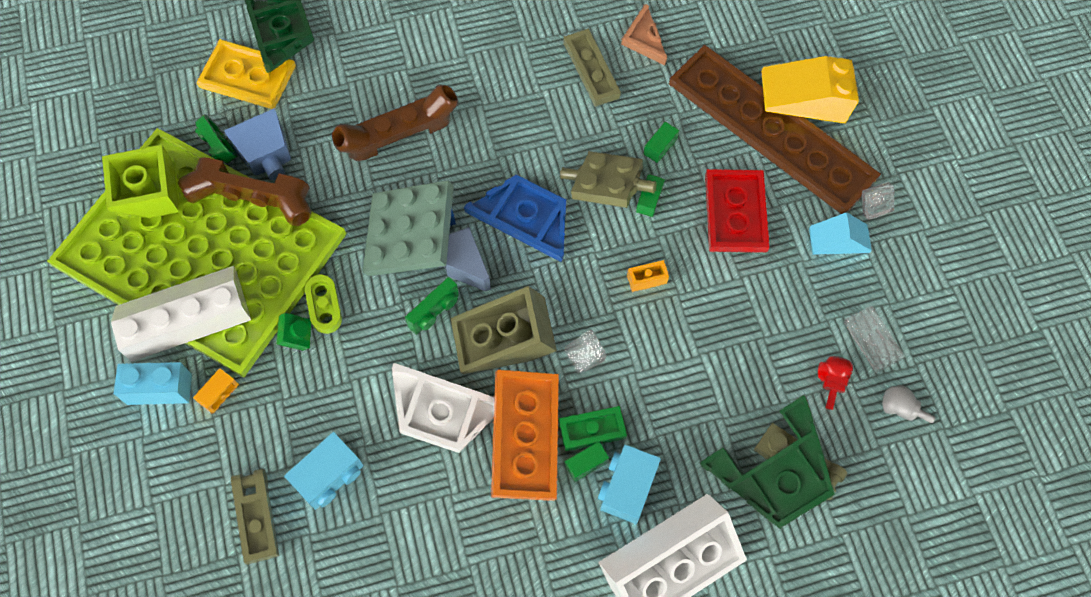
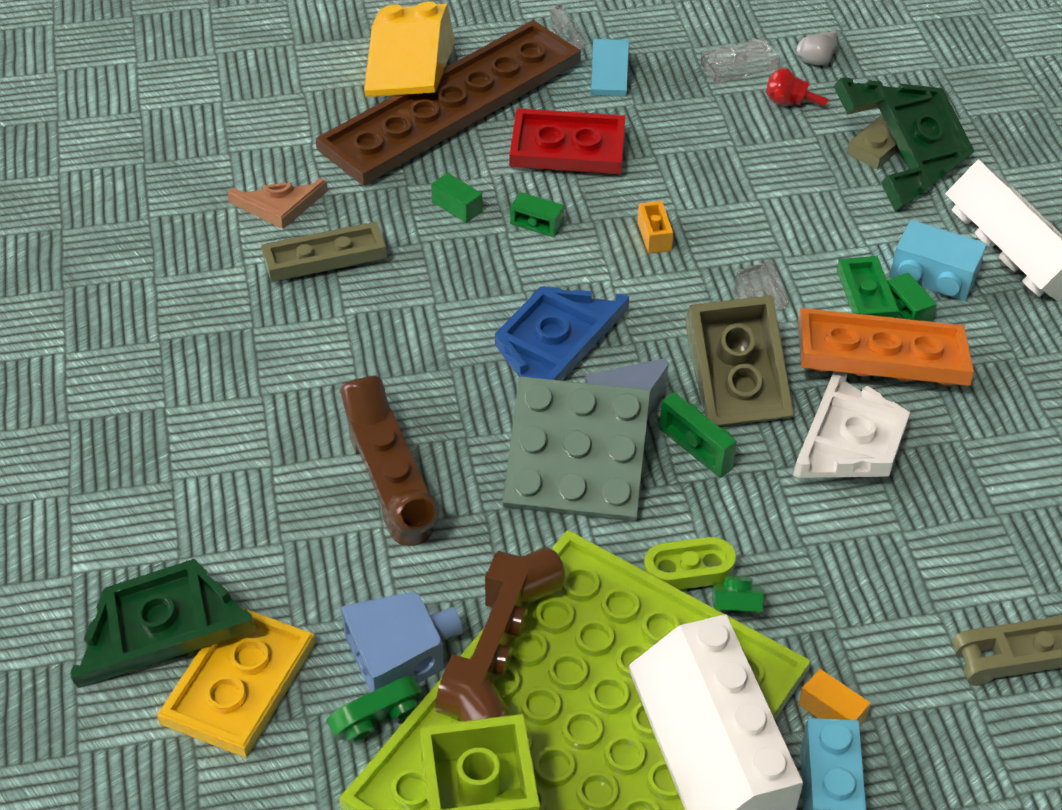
camera: 85 degrees left, 20 degrees down
(324, 471) = (952, 560): medium azure brick -> none
(607, 179) = (513, 244): olive plate -> none

